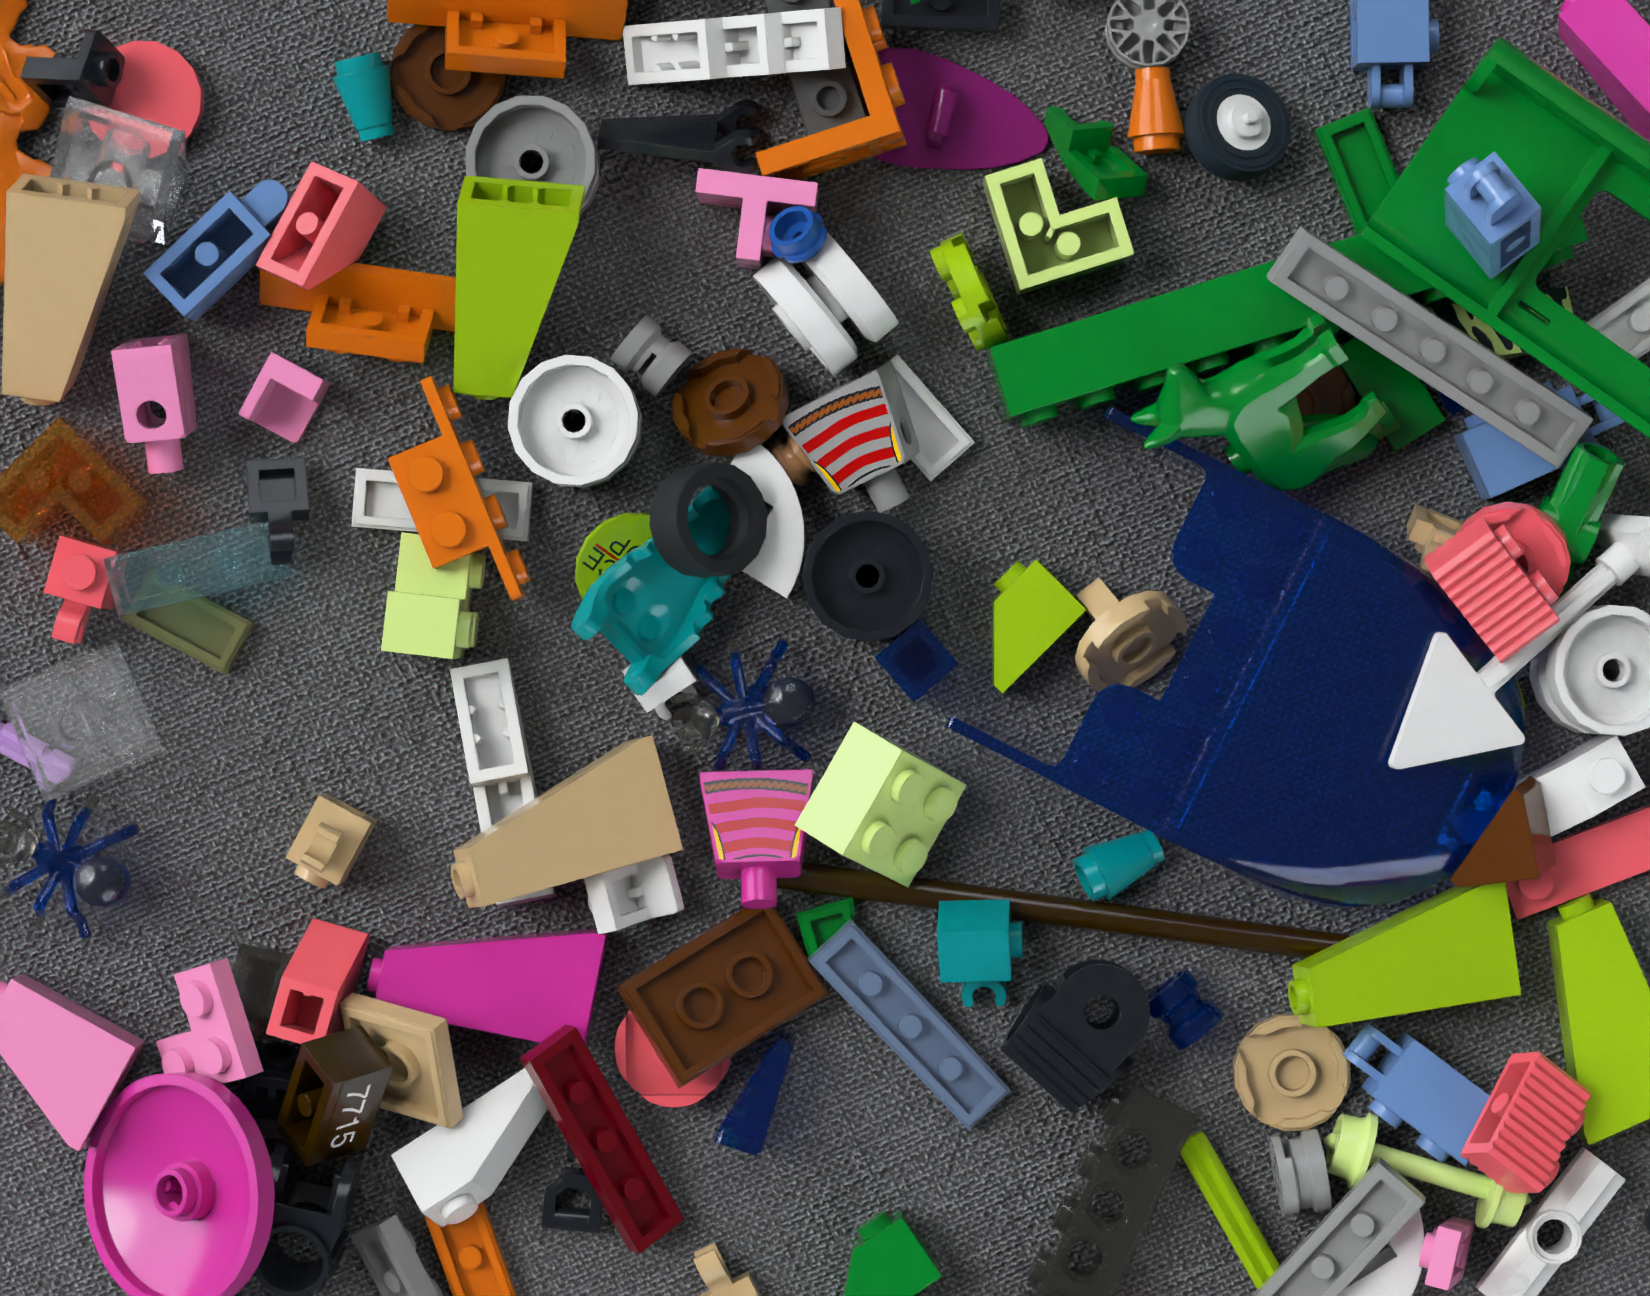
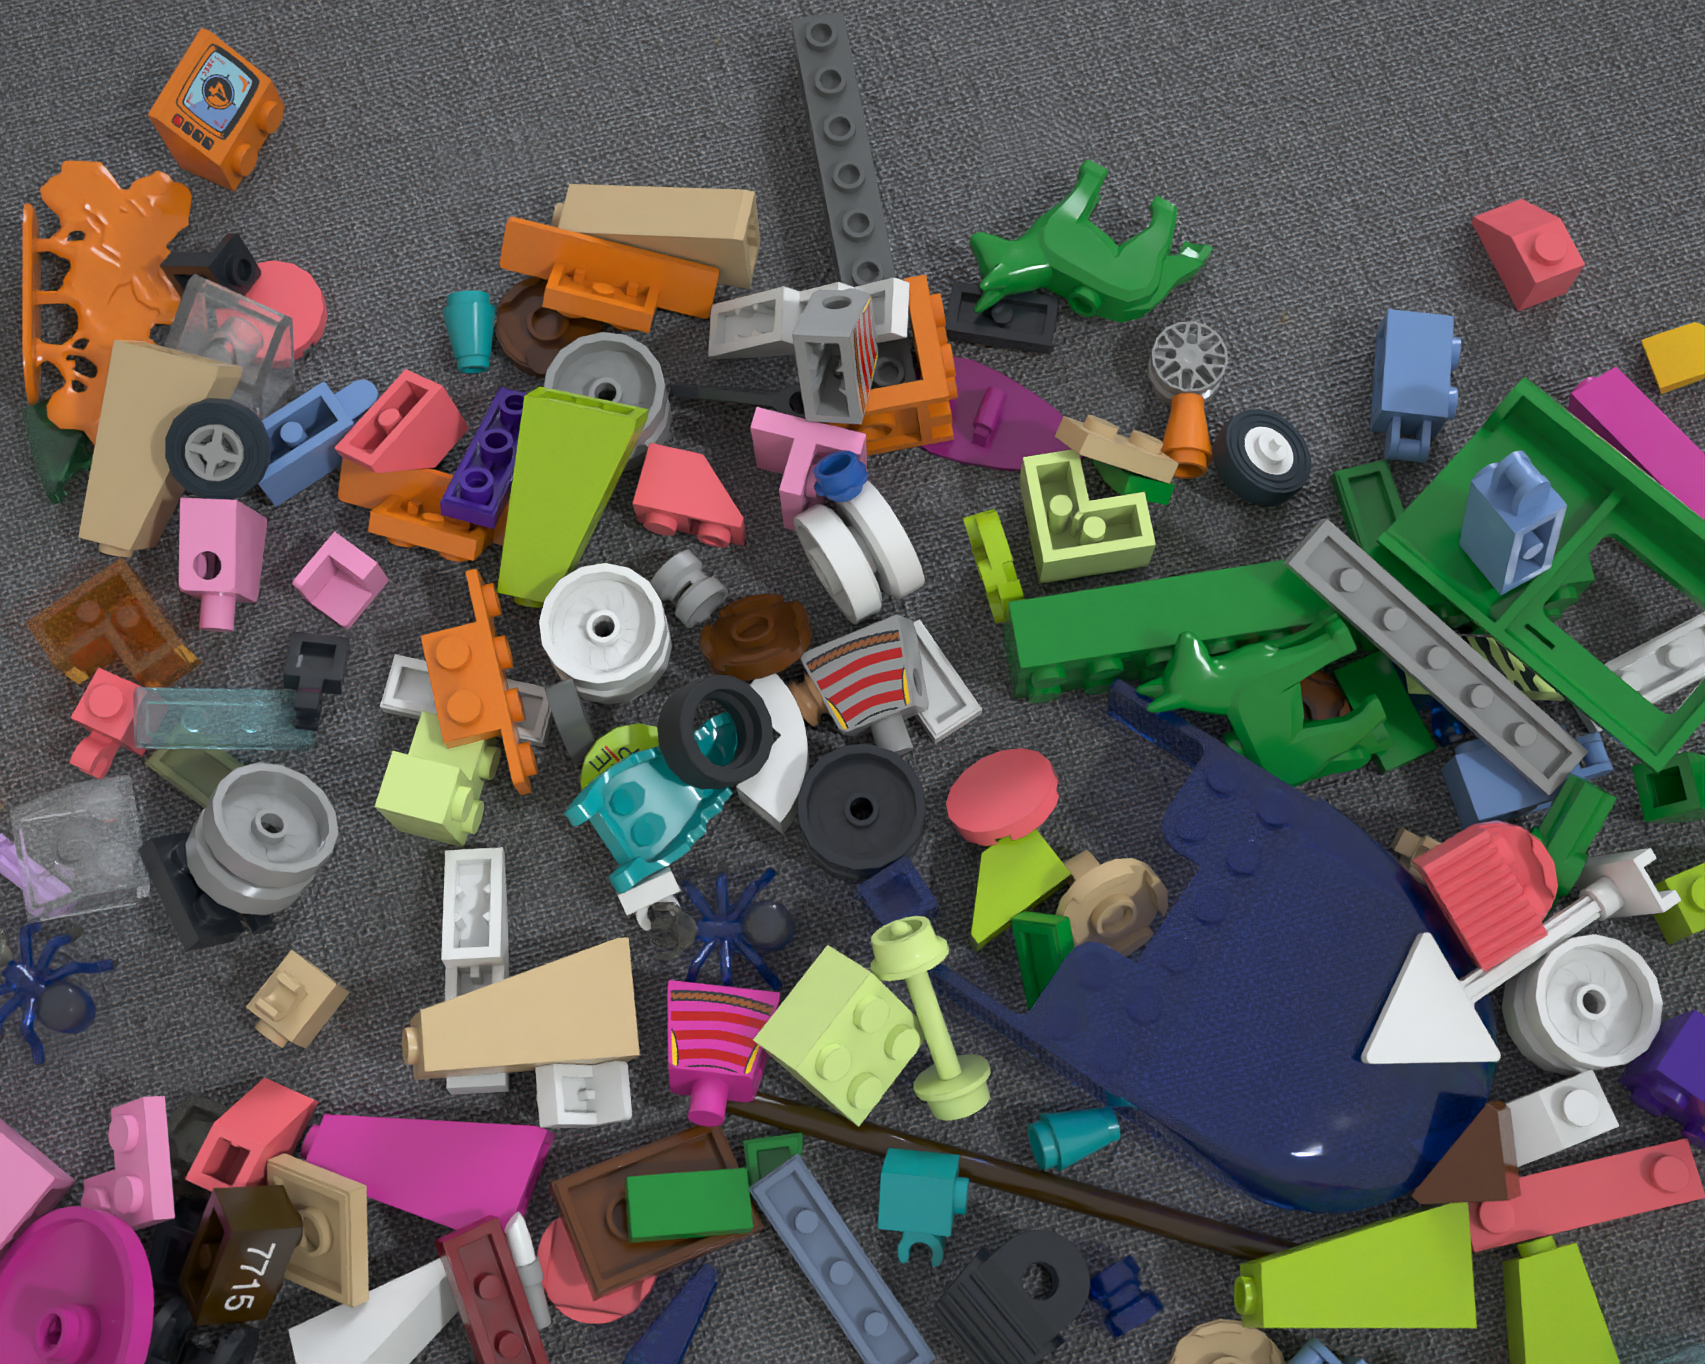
camera: 10 degrees right, 15 degrees down
(139, 315) = (209, 468): none -> black wheel
(208, 751) = (193, 912): none -> black plate
(267, 690) = (261, 838): none -> light grey wheel
(422, 267) = (487, 469): none -> dark purple tile
(556, 520) = (571, 718): none -> dark grey beam
(610, 1066) = (528, 1268): none -> piece
(631, 251) = (686, 496): none -> coral slope
(754, 986) = (688, 1205): none -> green tile
(777, 85) = (831, 333): none -> light grey torso
(934, 722) = (954, 1083): none -> yellowish green piece
(1008, 537) = (1003, 796): none -> coral tile
(1067, 692) = (1041, 948): none -> green tile
(1082, 149) = (1099, 441): none -> tan plate

